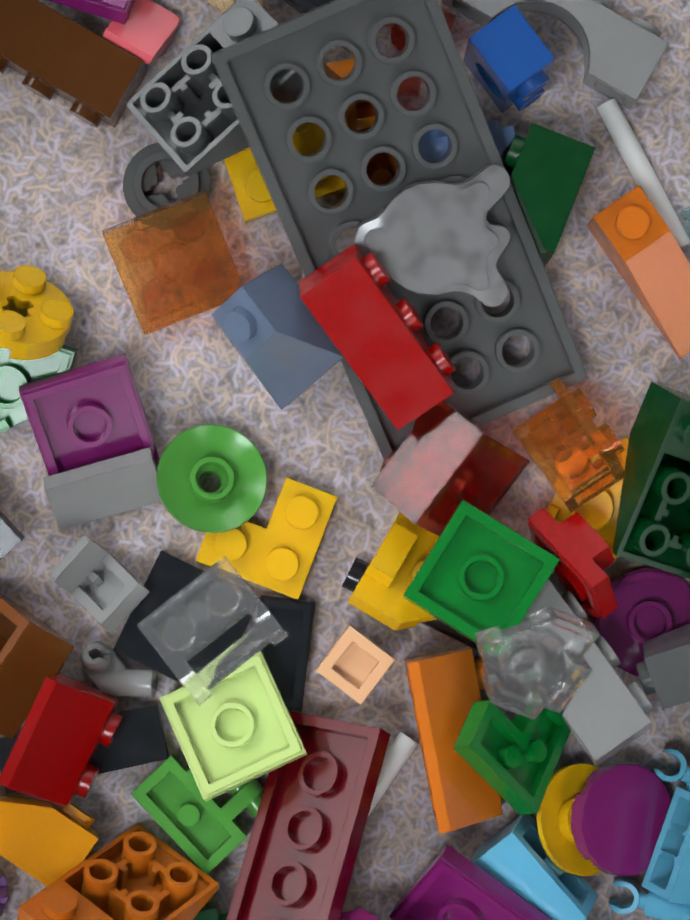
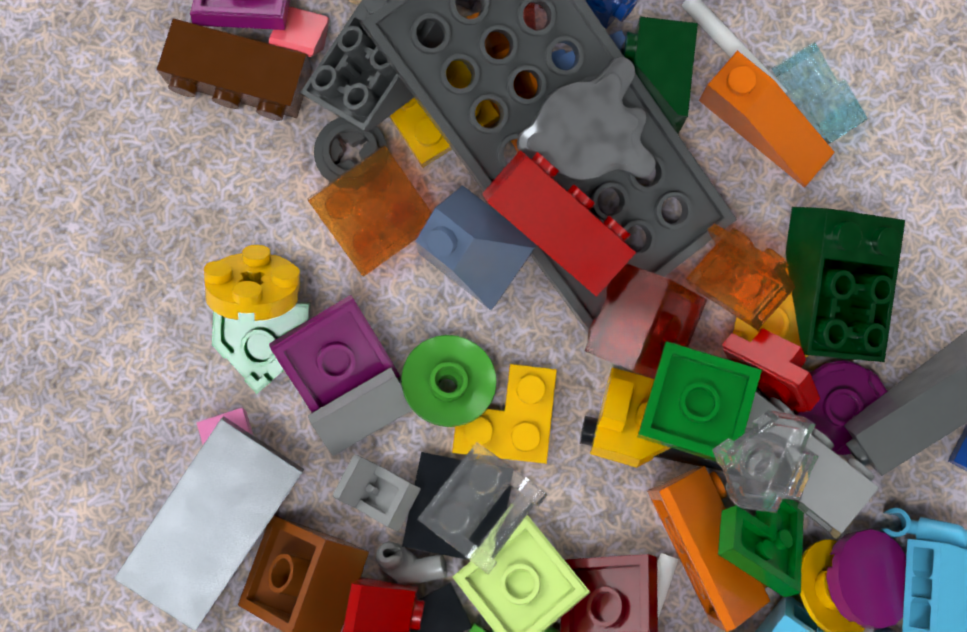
camera: 10 degrees left, 5 degrees down
(290, 657) = (552, 514): black tile -> none
(355, 664) = (610, 504): light nougat brick -> none

